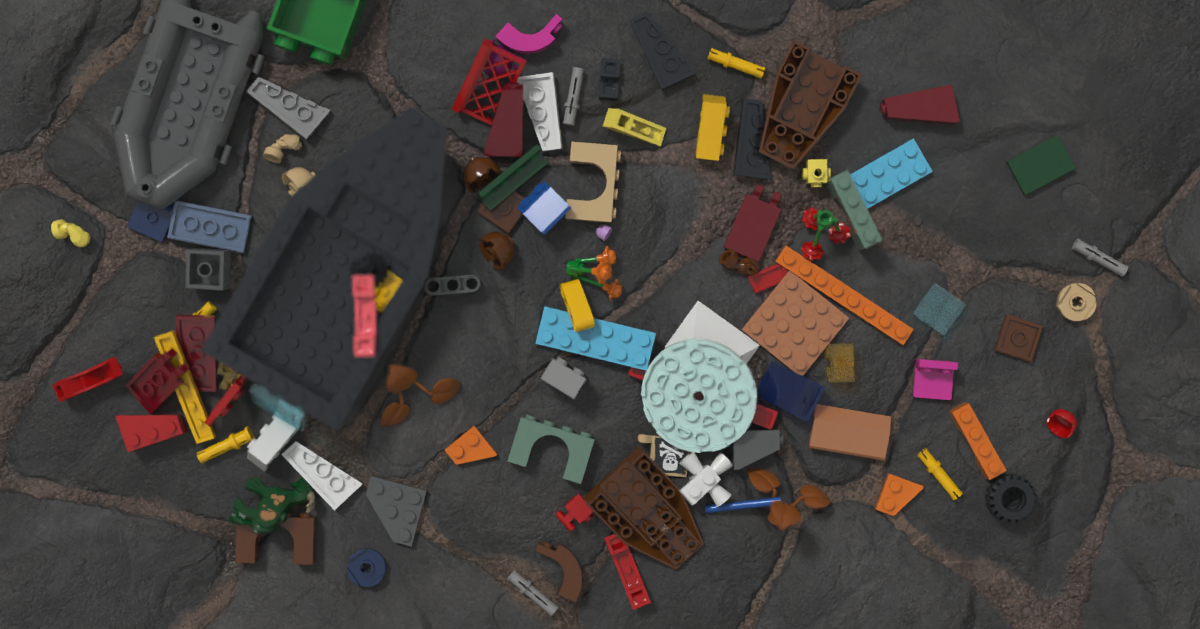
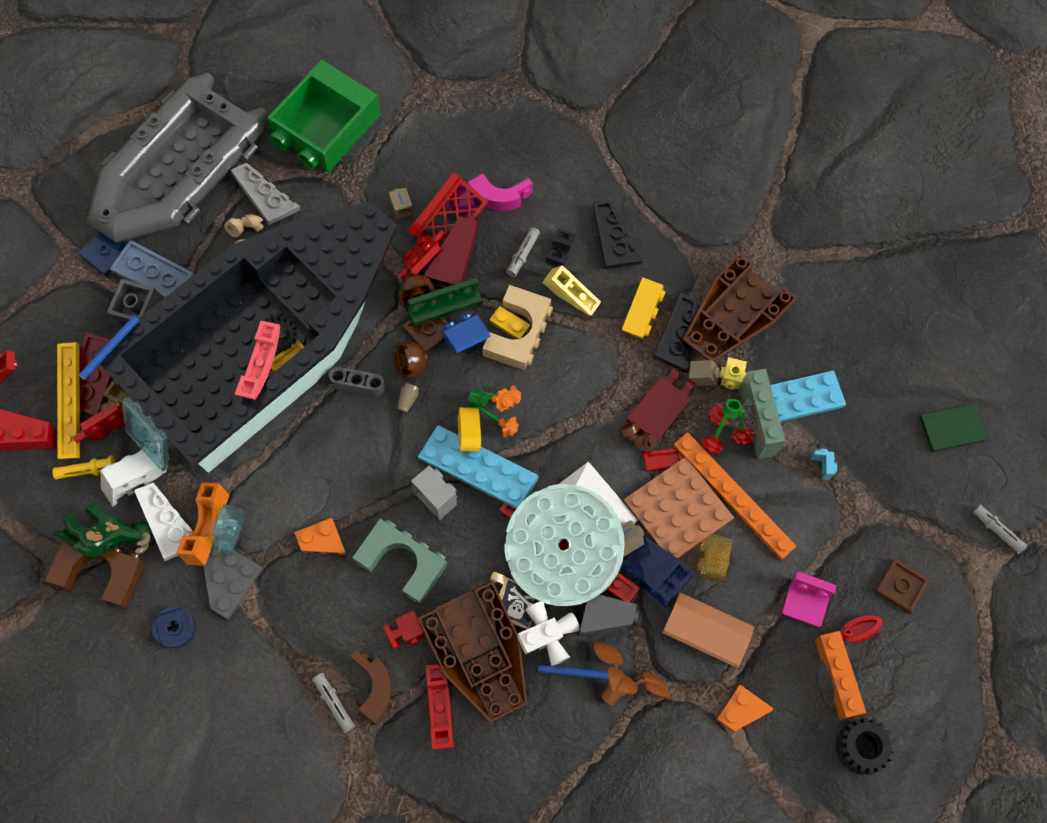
camera: 15 degrees right, 20 degrees down
(62, 229) = (30, 246): light yellow arm -> none
(157, 380) = (45, 386): dark red tile -> none
(216, 341) = (108, 347): none -> blue bar
(362, 489) = (197, 546): none -> orange arch
(384, 467) = (228, 528): none -> clear light blue window
(401, 379) = (274, 441): dark orange plant -> none
(432, 76) = (401, 203): none -> dark tan brick
(474, 133) = (421, 253): none -> red plate
(506, 286) = (407, 397): none -> dark tan cone
(542, 107) = (492, 252): white wing -> none
(582, 178) = (509, 323): none -> yellow plate
(603, 232) = (515, 374): lavender hinge -> none
(736, 63) = (682, 264): yellow pin -> none
(758, 366) = (632, 537): none -> dark tan brick
(787, 180) = (704, 373): none -> dark tan brick
(925, 106) = (848, 344): dark red slope -> none
(927, 239) = (829, 467): none -> medium azure bracket
(934, 467) = (793, 700): yellow pin -> none
(939, 309) = (826, 533): clear light blue plate -> none
(988, 390) = (861, 628): none -> red arm
(1062, 423) = (933, 682): red hair -> none
(1087, 300) = (966, 576): tan plate -> none

